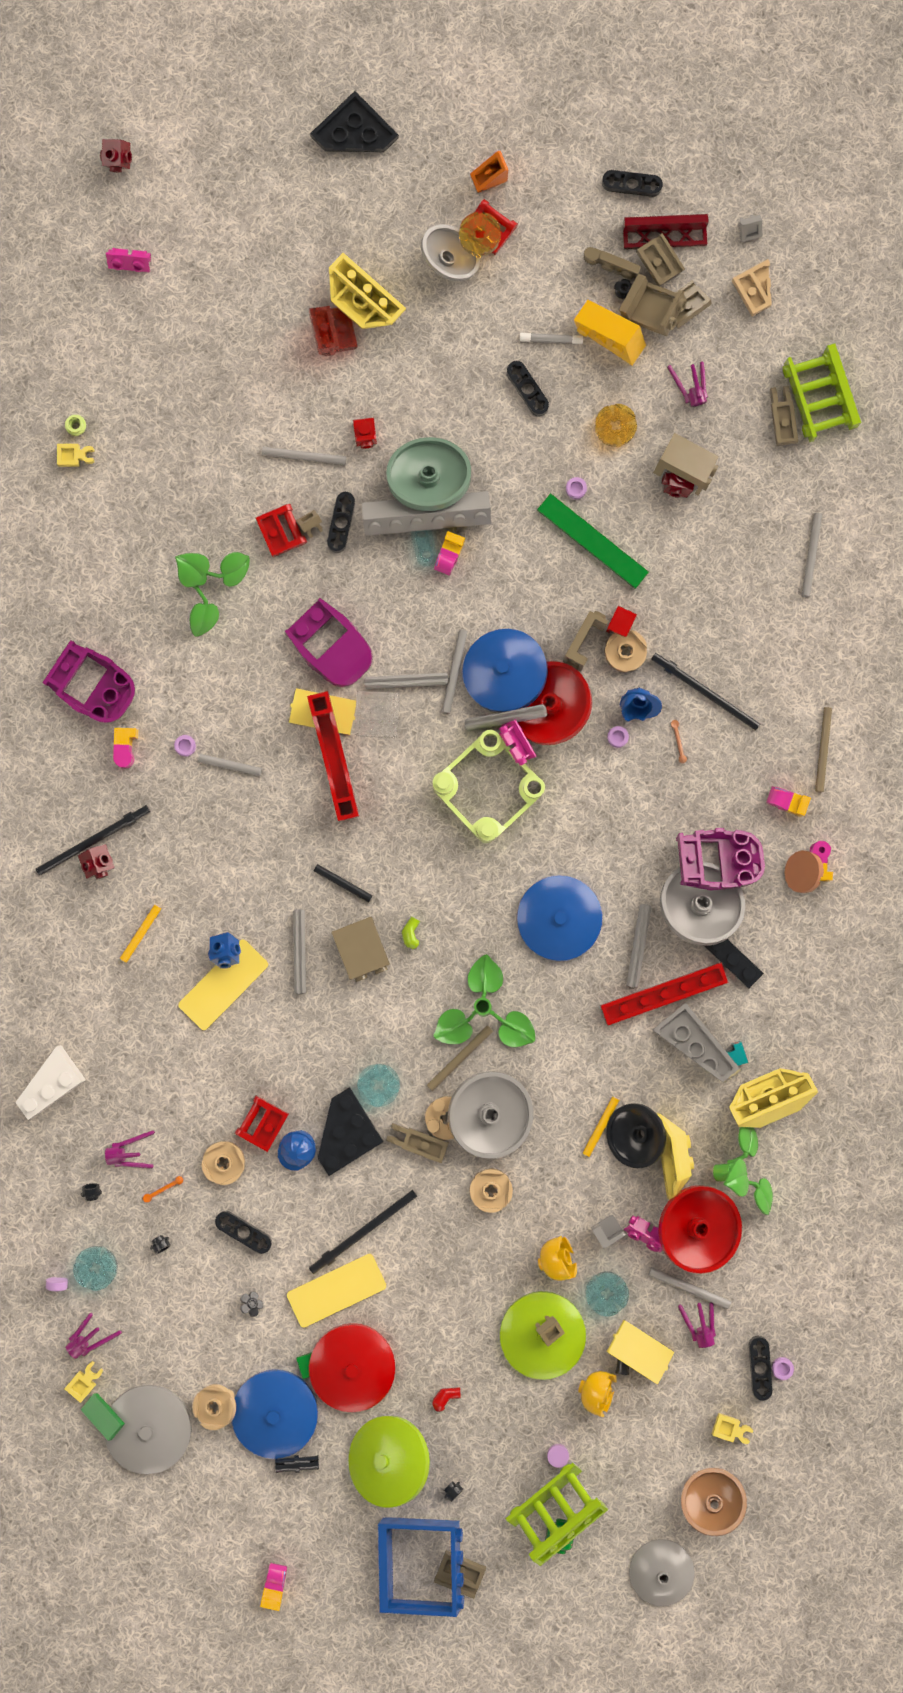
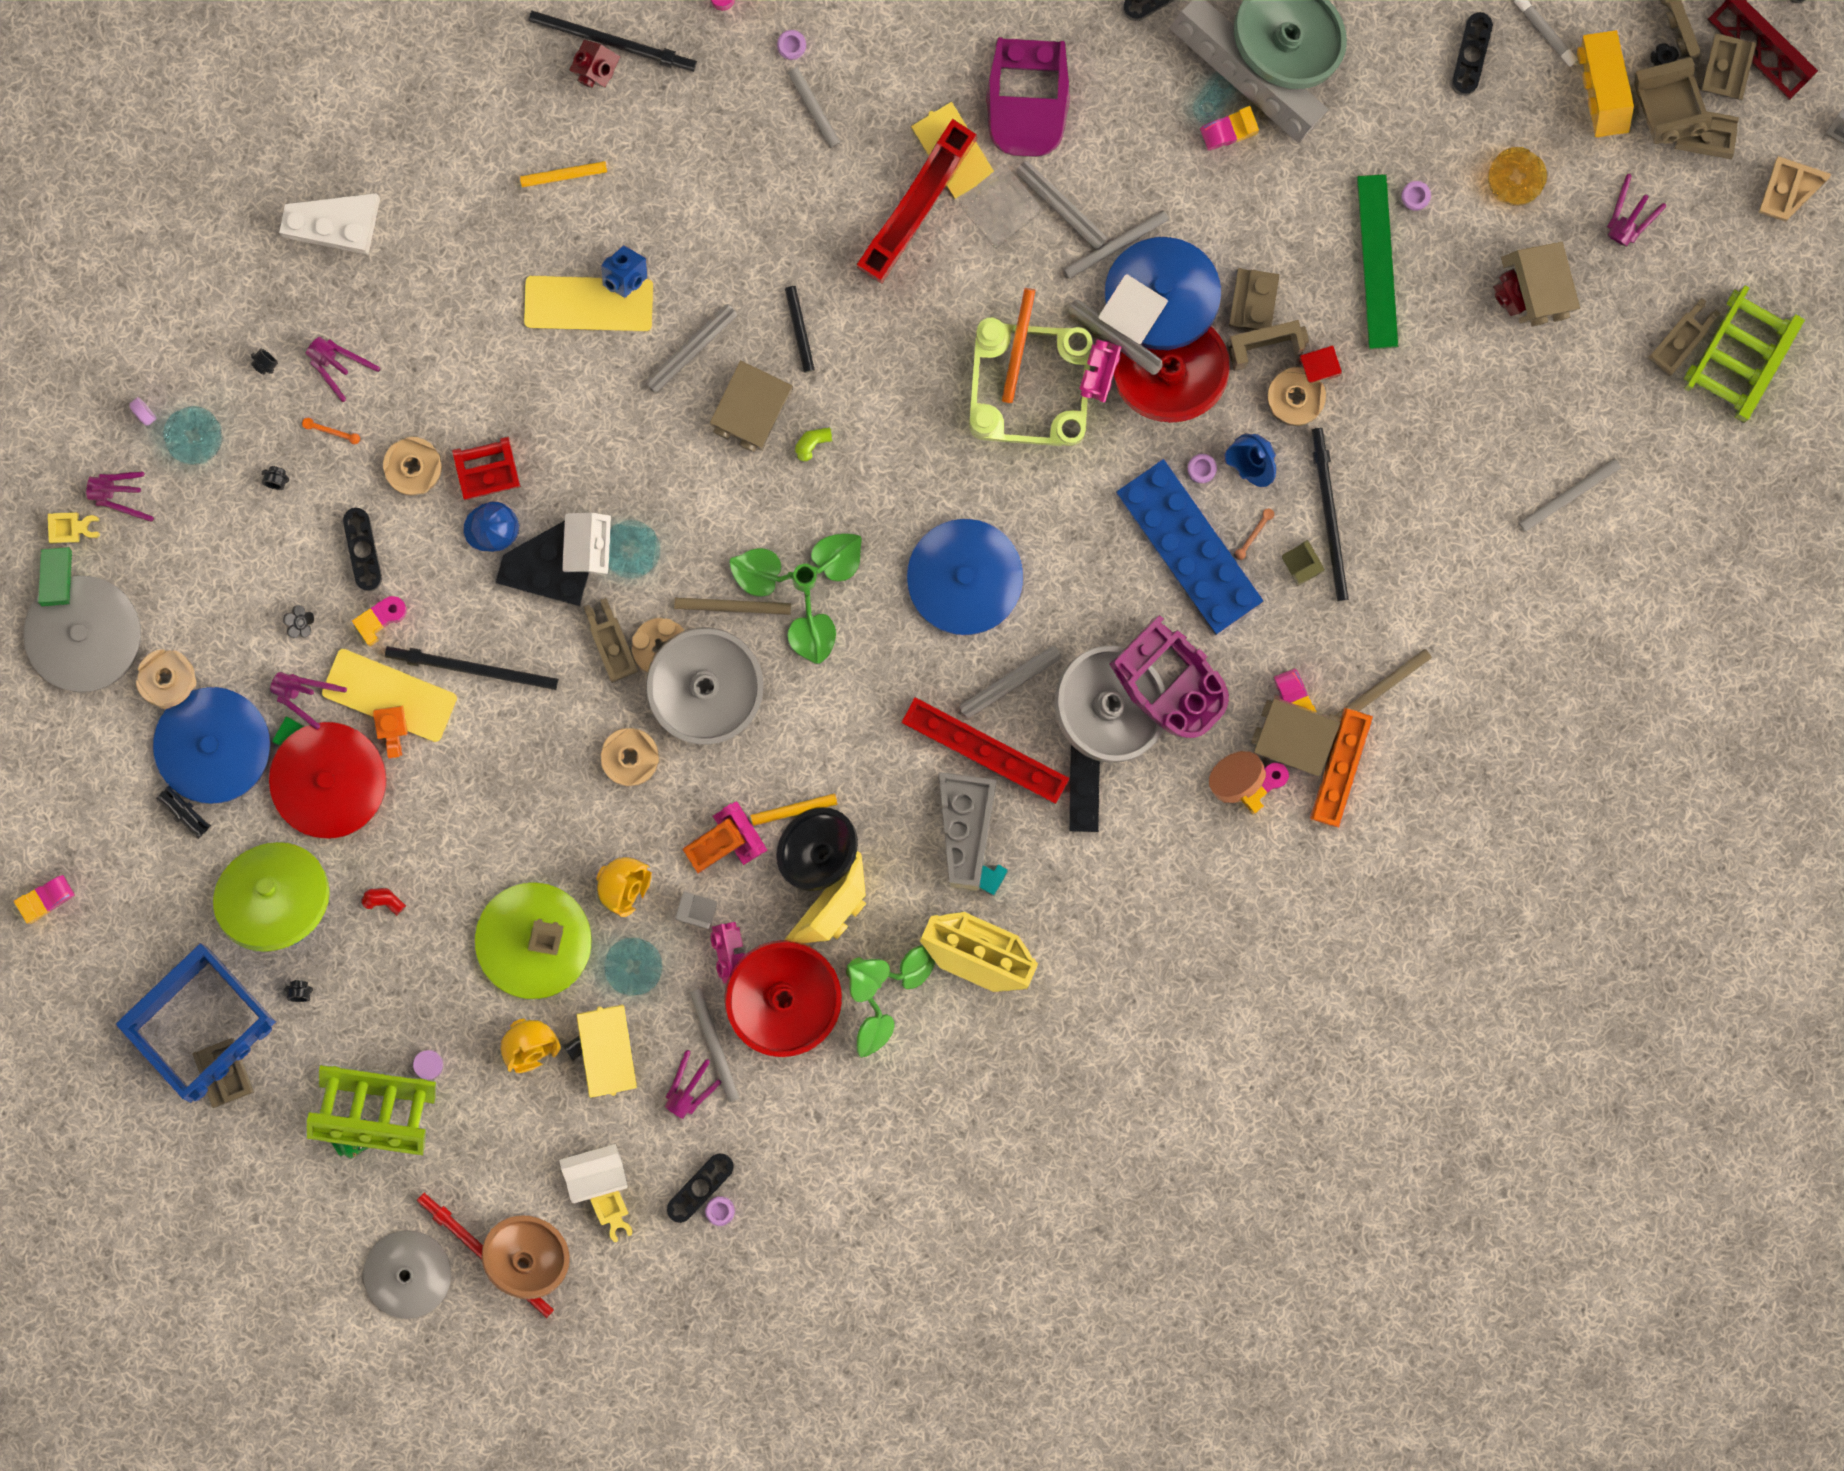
camera: 50 degrees right, 0 degrees up
(282, 1342) = (290, 685): none -> magenta plant
(288, 1259) = (379, 616): none -> leg
(353, 1107) = (586, 543): none -> white panel
(354, 1305) = (391, 724): none -> orange plate
(461, 773) = (1018, 345): none -> orange bar
(500, 694) = (1133, 309): none -> white sticker
(552, 625) = (1253, 299): none -> dark tan plate
(581, 1189) = (713, 845): none -> orange plate
(587, 1168) = (754, 844): none -> dark pink hinge
(649, 1524) = (442, 1216): none -> red bar
(654, 782) = (1189, 546): none -> blue plate
(701, 1420) = (594, 1173): none -> white panel
(719, 729) = (1303, 563): none -> olive panel
(810, 820) = (1295, 735): none -> dark tan panel
(847, 810) = (1341, 767): none -> orange tile

